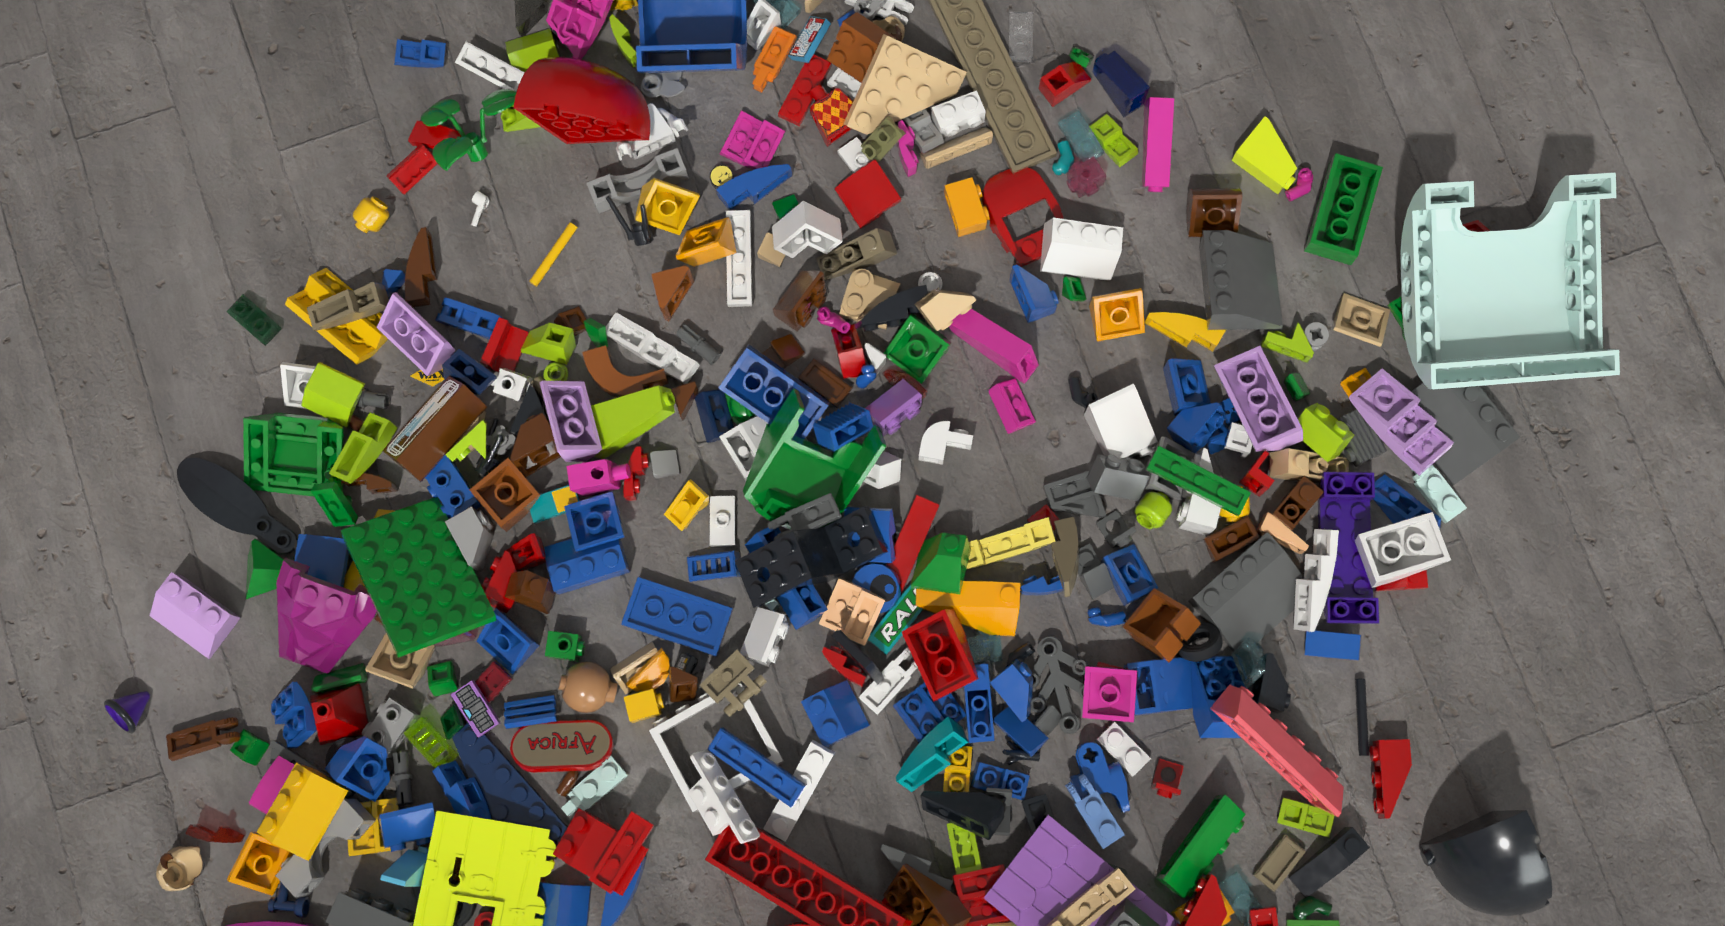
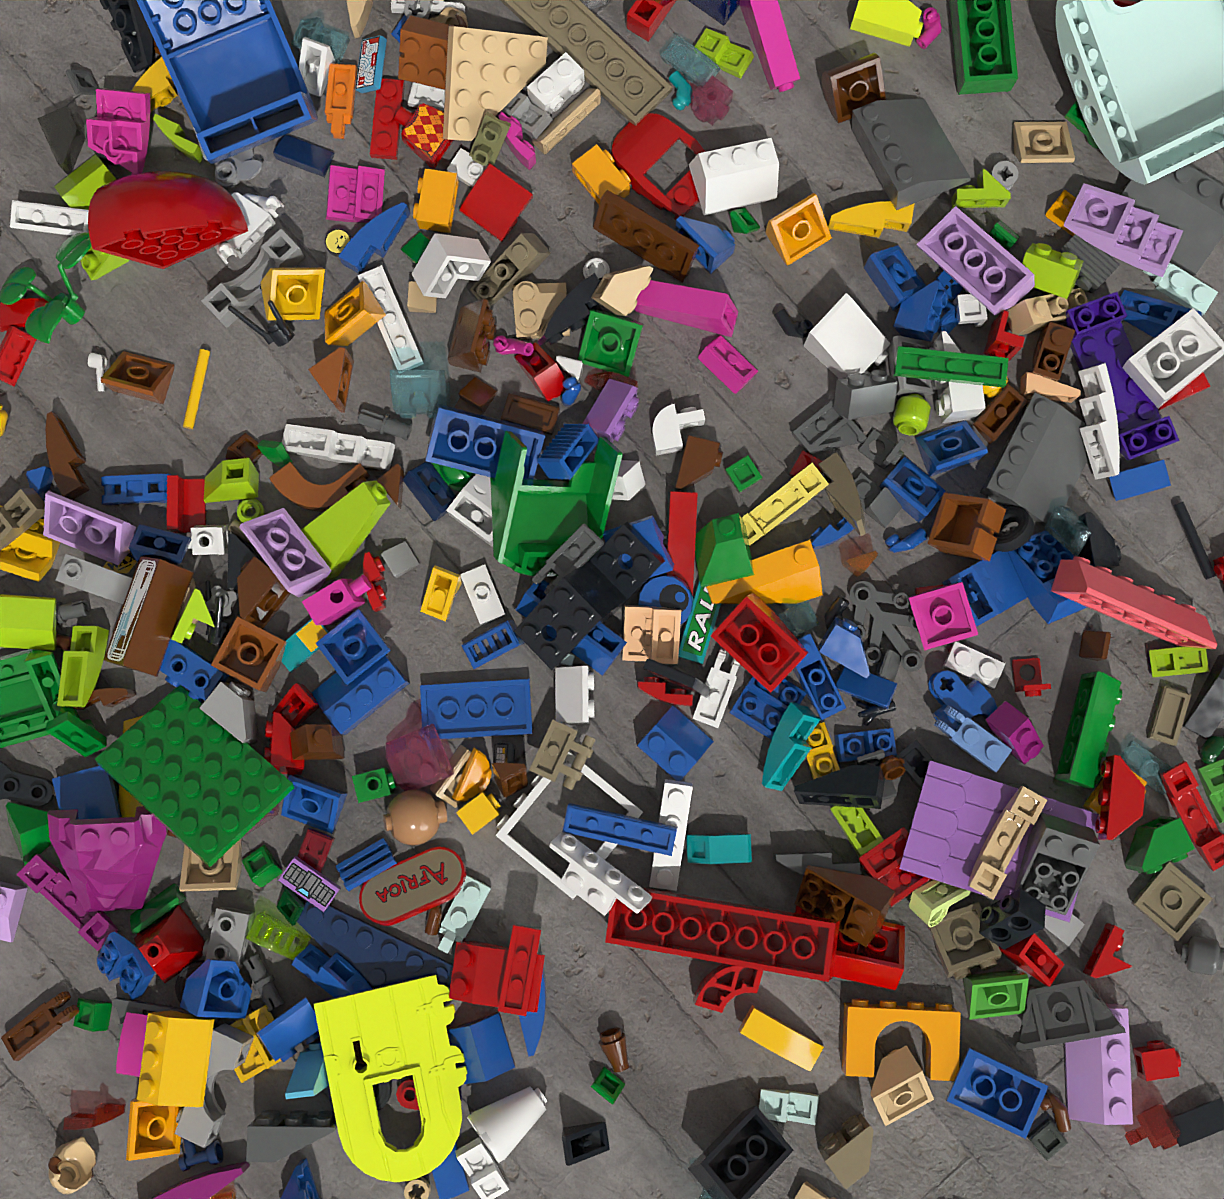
camera: 25 degrees left, 5 degrees up
(264, 627) = (57, 888): none -> magenta slope
(402, 379) = (93, 579): none -> light grey slope
(510, 226) = (139, 377): none -> dark orange slope
(610, 639) = (418, 759): none -> clear pink slope
(722, 94) = (303, 155): none -> dark blue slope
(737, 328) = (419, 391): none -> clear light blue slope
(818, 173) = (437, 200): none -> light orange brick
(836, 819) = (719, 848): none -> teal slope
(951, 479) = (697, 462): none -> reddish brown slope
(982, 270) = (645, 236): none -> reddish brown plate
(987, 505) = (743, 474): none -> green plate
(1014, 809) = (892, 767): none -> reddish brown plate
(1058, 621) = (860, 563): none -> clear orange slope
(1133, 821) = (1015, 732): none -> magenta brick
(1175, 552) = (950, 448): none -> blue slope
(1236, 774) = (1095, 645): none -> reddish brown slope

